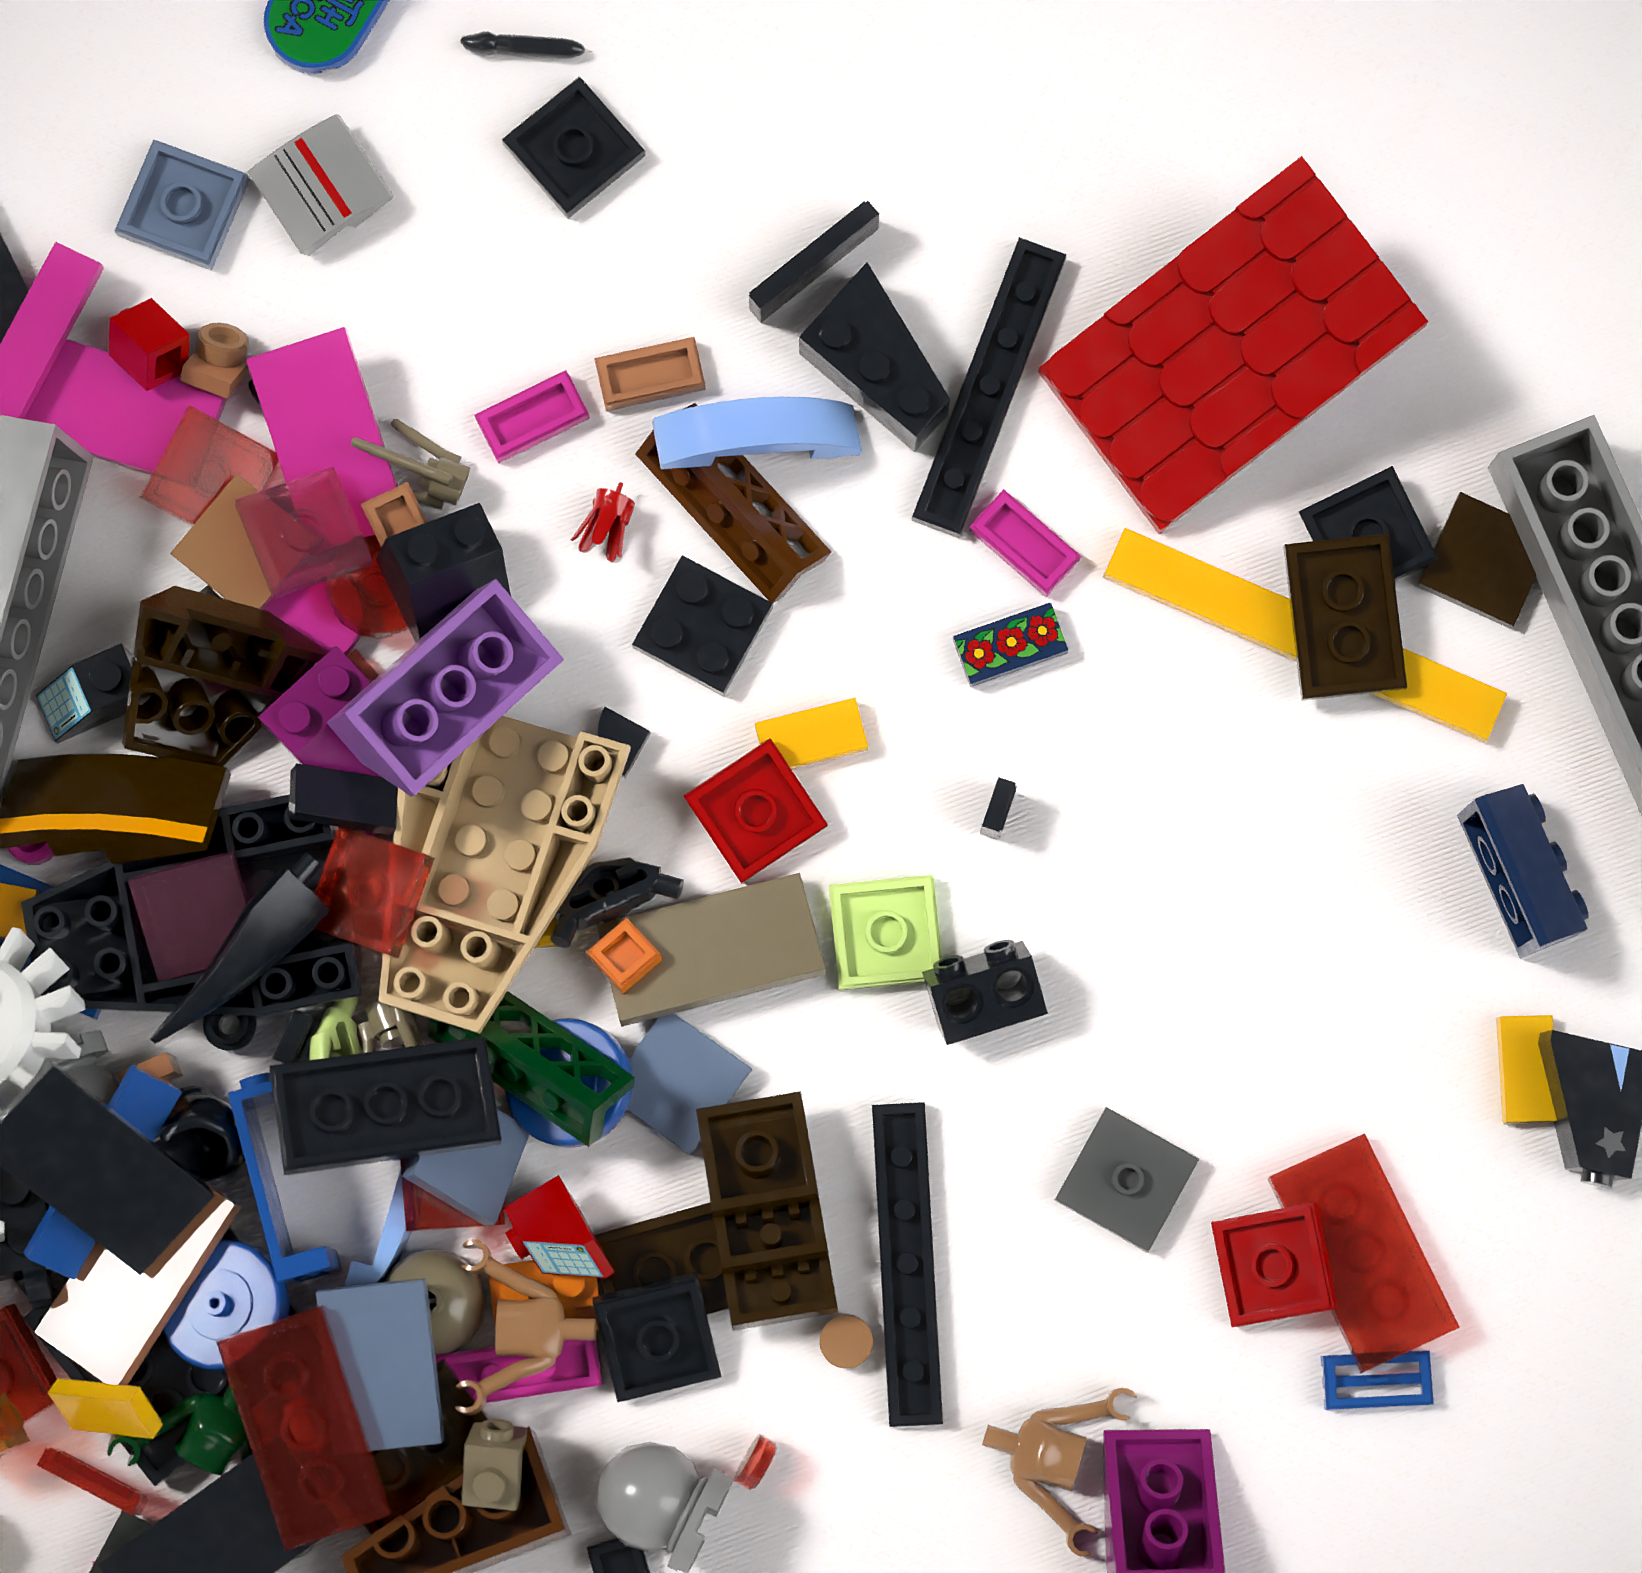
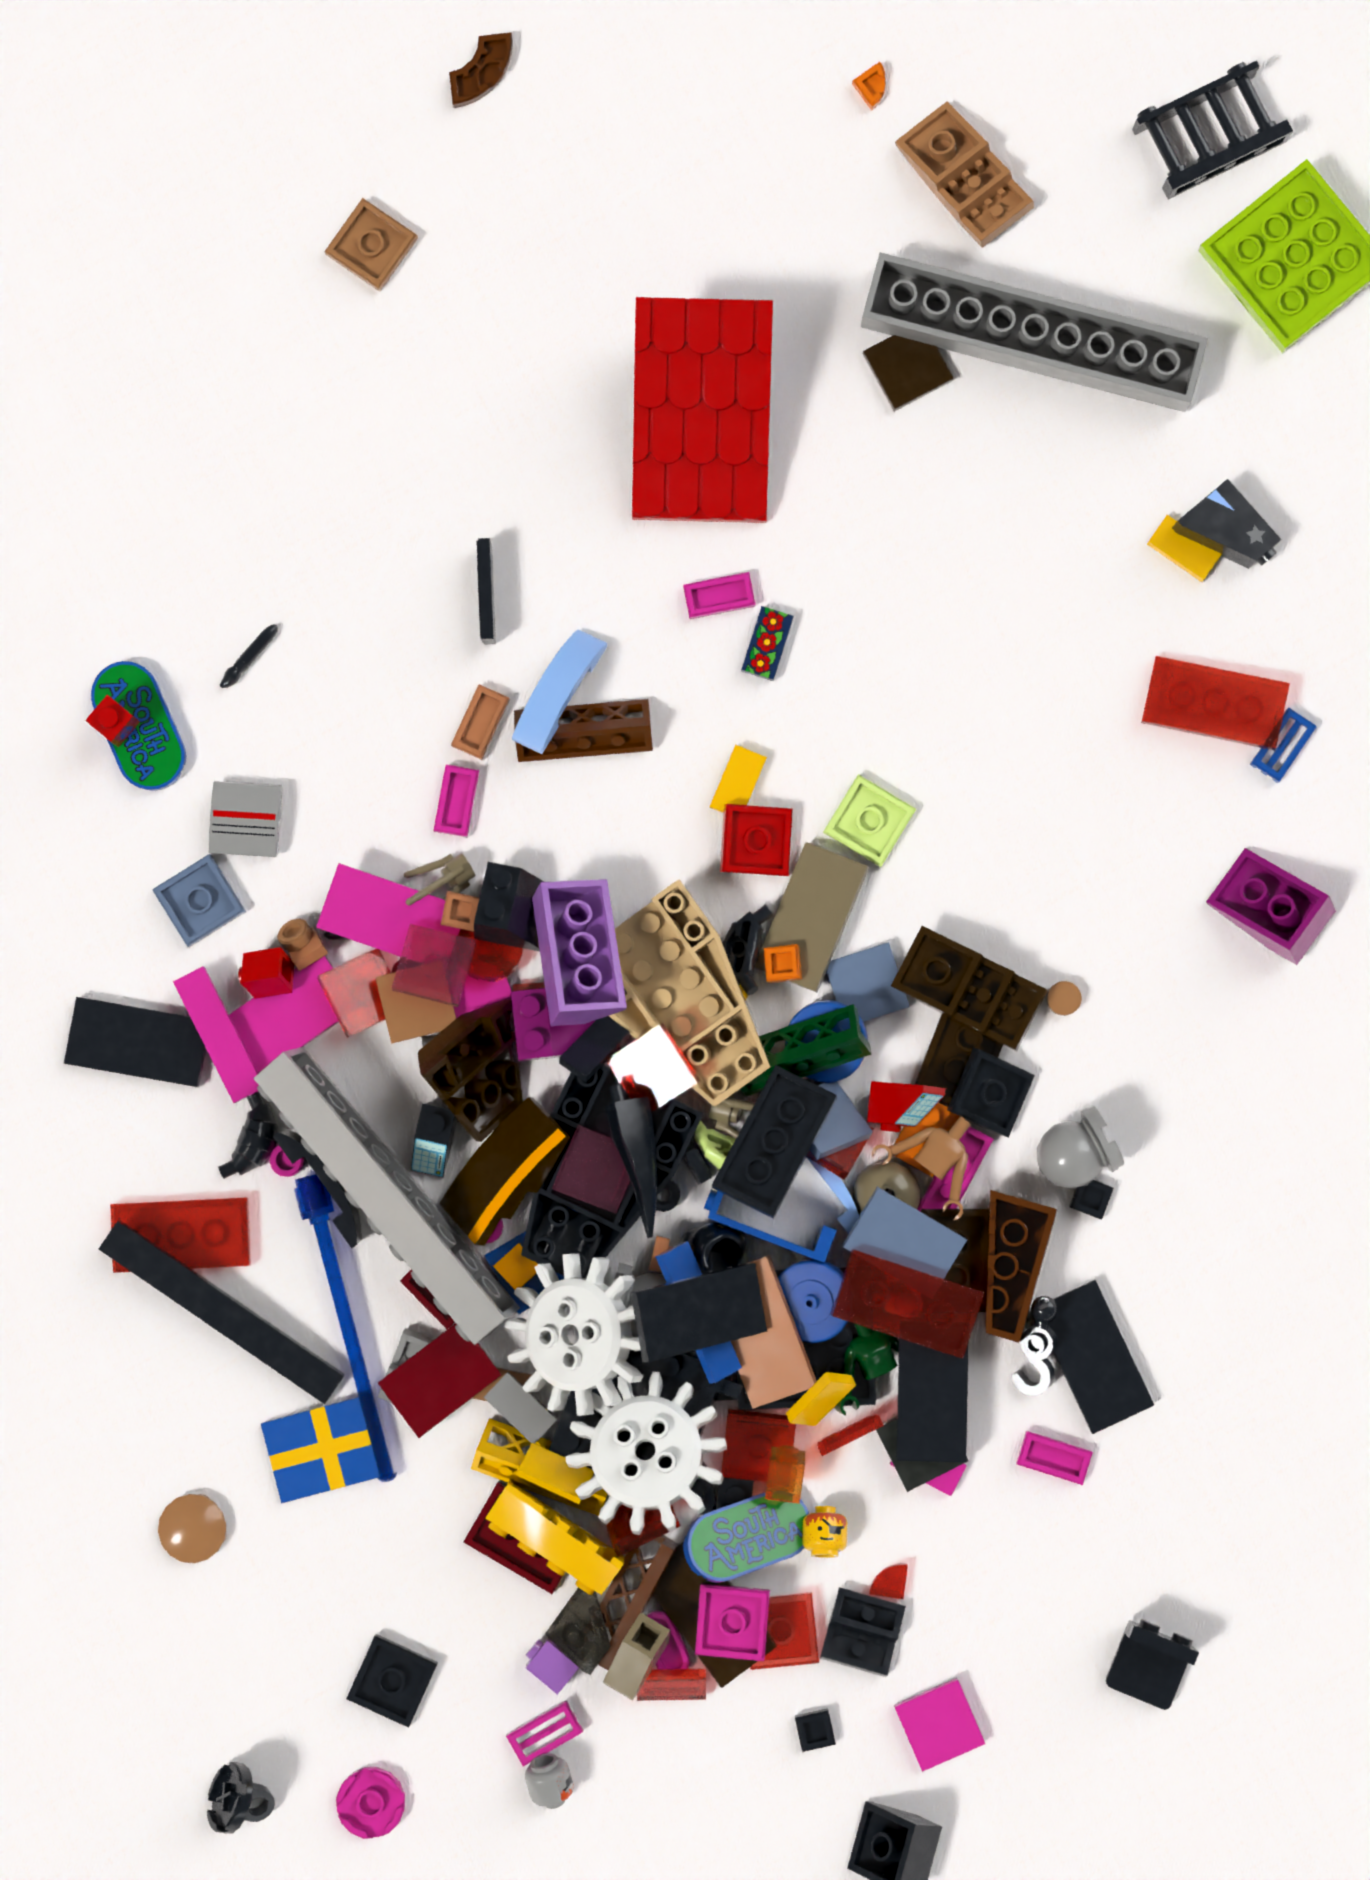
camera: 45 degrees left, 5 degrees up
(493, 1465) = (998, 1220): dark tan bracket -> none
(573, 147) = (325, 671): black tile -> none
(609, 514) = (543, 800): red piece -> none
(622, 730) = (661, 879): black tile -> none
(702, 625) = (636, 795): black plate -> none
(755, 1462) = (1091, 1089): clear red tile -> none
(876, 360) = (565, 598): black wedge -> none
(907, 1264) = (1047, 938): black tile -> none
(986, 1006) = (948, 797): black brick -> none
(989, 387) = (622, 551): black tile -> none
(998, 808) = (849, 714): black tile -> none
(1052, 1456) = (1200, 937): medium nougat piece -> none
(1126, 1179) = (1088, 794): dark grey plate -> none
(1267, 621) = (876, 488): yellow tile -> none
(1274, 1265) = (1188, 752): red tile -> none
(1345, 617) = (885, 461): dark brown tile -> none
(1374, 508) = (850, 416): black tile -> none
(1523, 869) = (1084, 471): dark blue slope -> none

